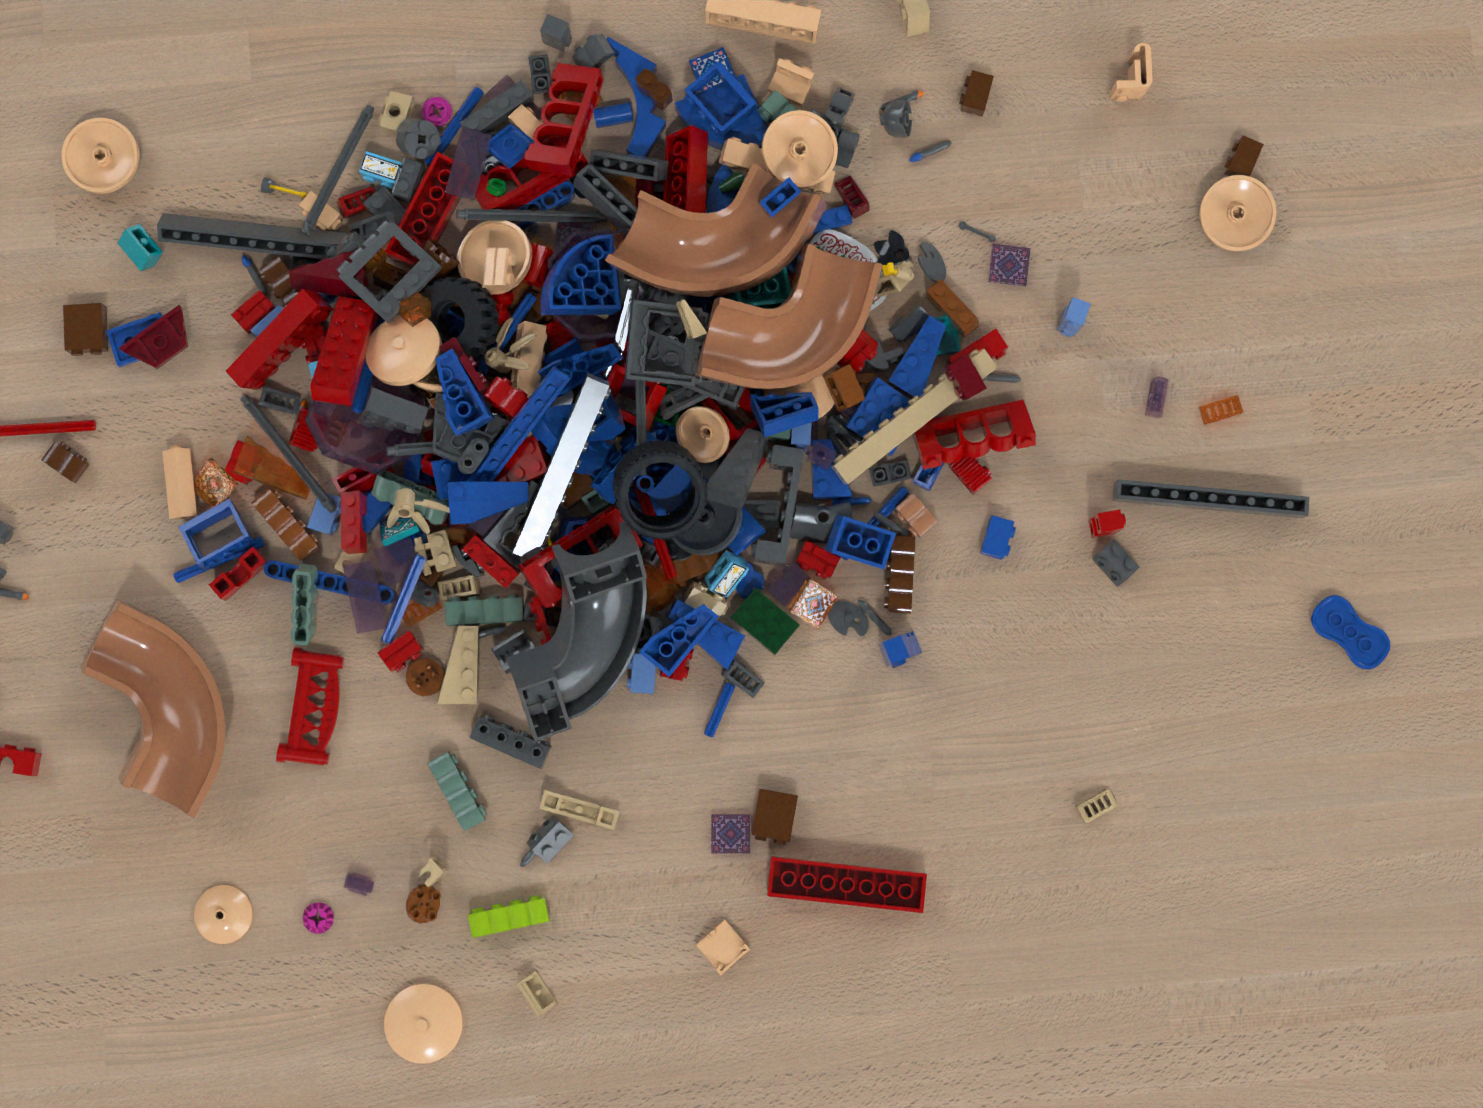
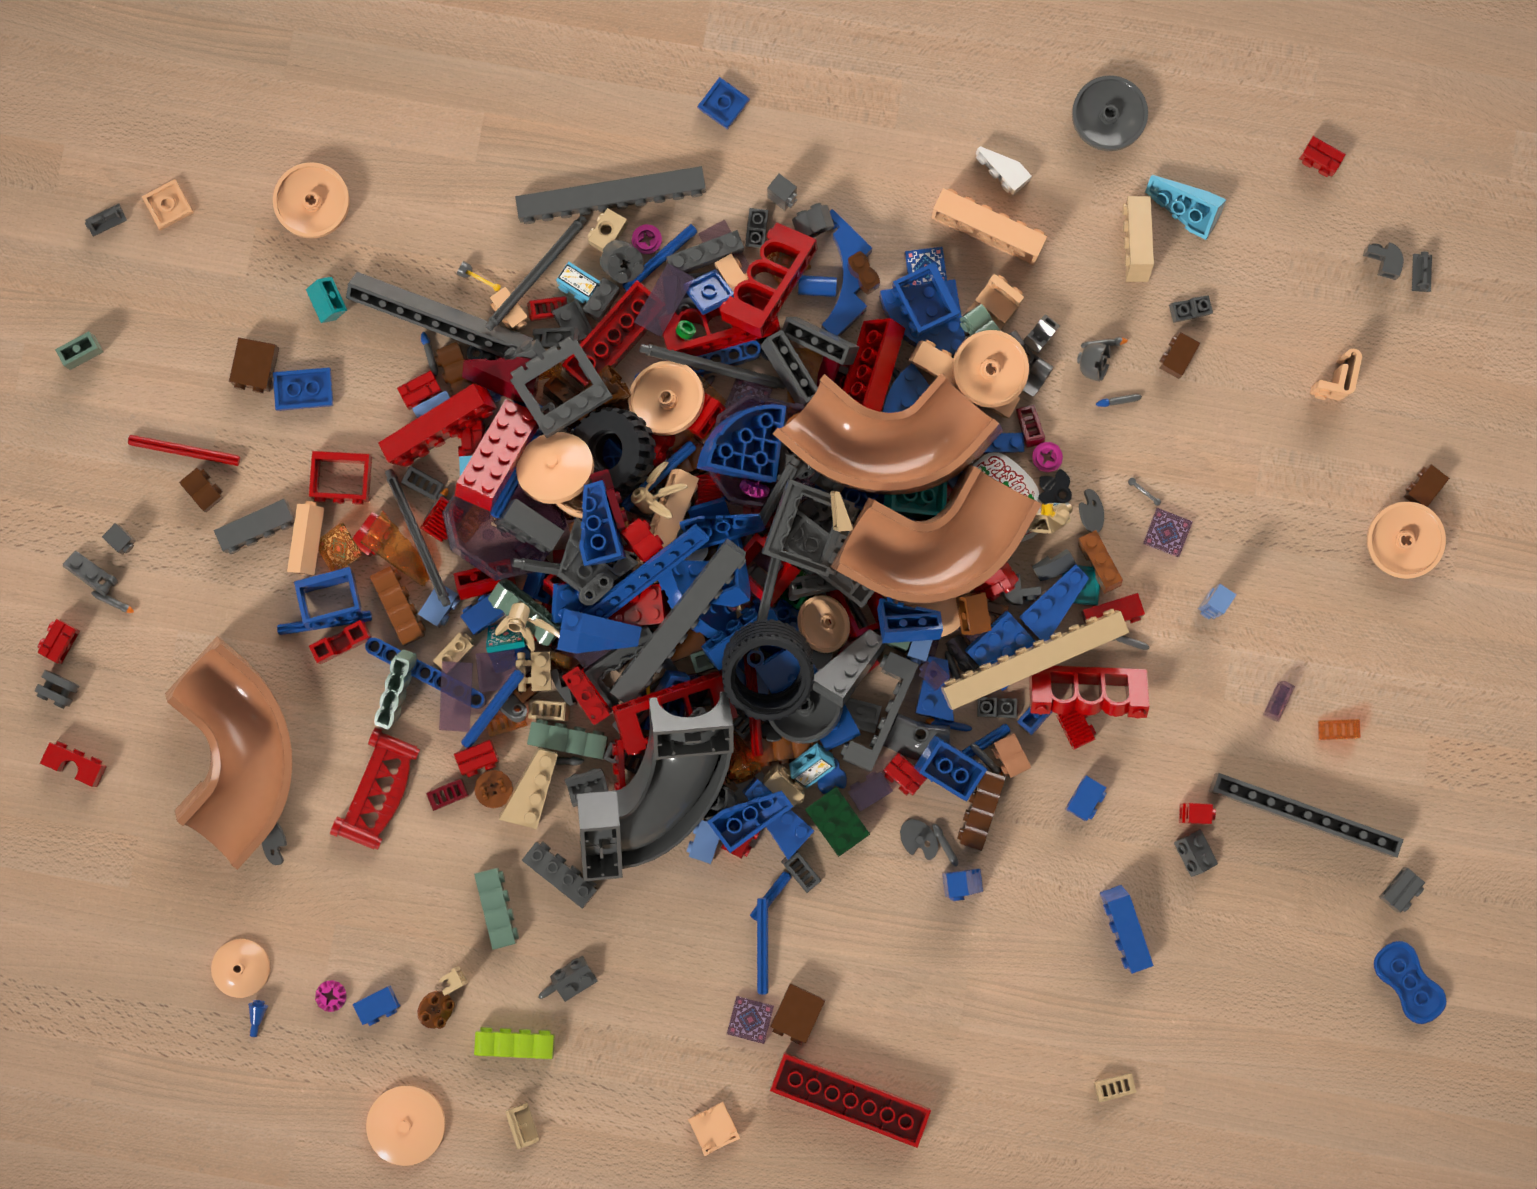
camera: 20 degrees right, 0 degrees up
(126, 484) = (255, 526): none -> dark grey brick
(160, 340) = (323, 395): dark red wing -> none
(194, 396) = (339, 457): none -> red window
(222, 783) = (273, 842): none -> dark grey piece
(250, 952) = (257, 1011): none -> blue cone
(352, 533) = (459, 634): red arch -> none
(359, 883) = (378, 973): clear purple brick -> none
(365, 915) = (376, 1005): none -> blue brick
(391, 76) = (610, 195): none -> dark grey brick
(391, 680) = (463, 791): none -> dark red slope
(415, 309) = (576, 431): clear orange brick -> none
(498, 269) = (667, 413): light nougat brick -> none
(579, 809) = (609, 957): tan slope -> none
(602, 322) = (754, 488): none -> dark pink gear
(724, 759) = (762, 946): none -> blue axle
(732, 183) = (916, 385): dark green cone -> none
(779, 197) = (958, 413): blue brick -> none
(812, 603) = (888, 816): clear orange tile -> none
(884, 219) = (1045, 448): none -> dark pink gear
(964, 377) = (1093, 635): dark red brick -> none
(976, 47) = (1191, 309): none -> dark grey slope
(1068, 651) = (1127, 929): none -> blue wedge
(1321, 546) = (1402, 890): none -> dark grey brick

